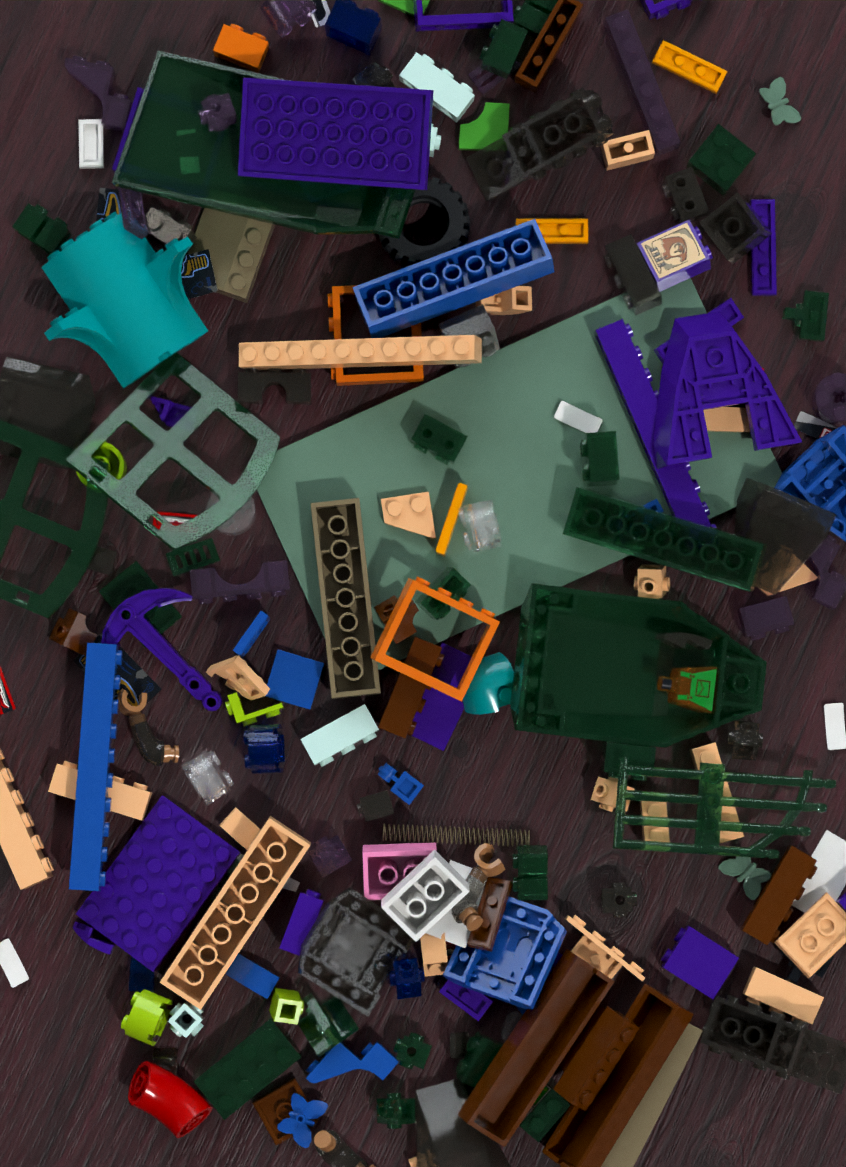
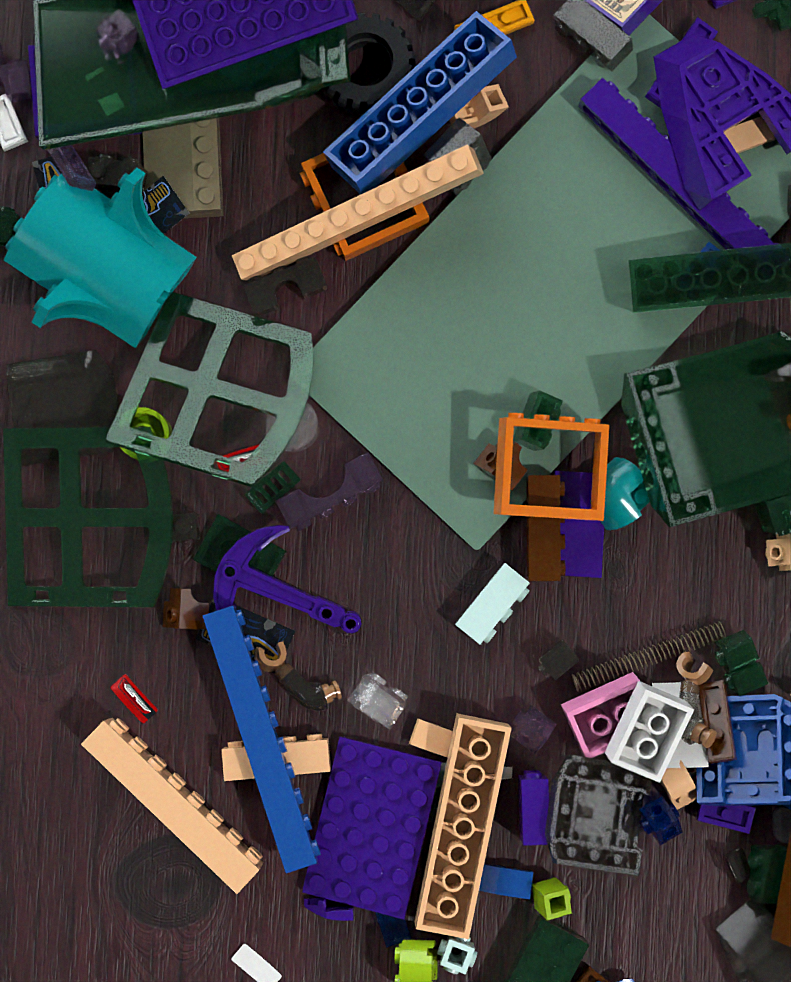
camera: 15 degrees left, 0 degrees up
(169, 411) = (189, 352): dark purple slope -> none
(235, 708) = (377, 620): lime bracket -> none
(240, 677) = (369, 587): light nougat wing -> none
(251, 634) = (363, 539): blue tile -> none
(265, 749) = (423, 648): clear blue brick -> none
(294, 679) = (423, 567): blue tile -> none
(326, 1024) = (600, 900): clear green bracket -> none
(342, 1060) = (629, 929): blue arch -> none
(345, 598) = (442, 465): dark tan brick -> none
(395, 1110) = (705, 958): clear green brick -> none
(405, 786) = (577, 629): blue plate -> none
(410, 513) = (471, 355): light nougat wing -> none
(419, 1057) = (703, 897): clear green brick -> none
(438, 439) = (469, 271): clear green brick -> none
(451, 519) = (515, 346): light orange tile -> none
(481, 526) = (548, 337): clear brick -> none
(577, 418) = (597, 195): white sticker -> none
(601, 459) = (639, 223): clear green brick -> none
(651, 581) = (738, 317): light nougat brick -> none

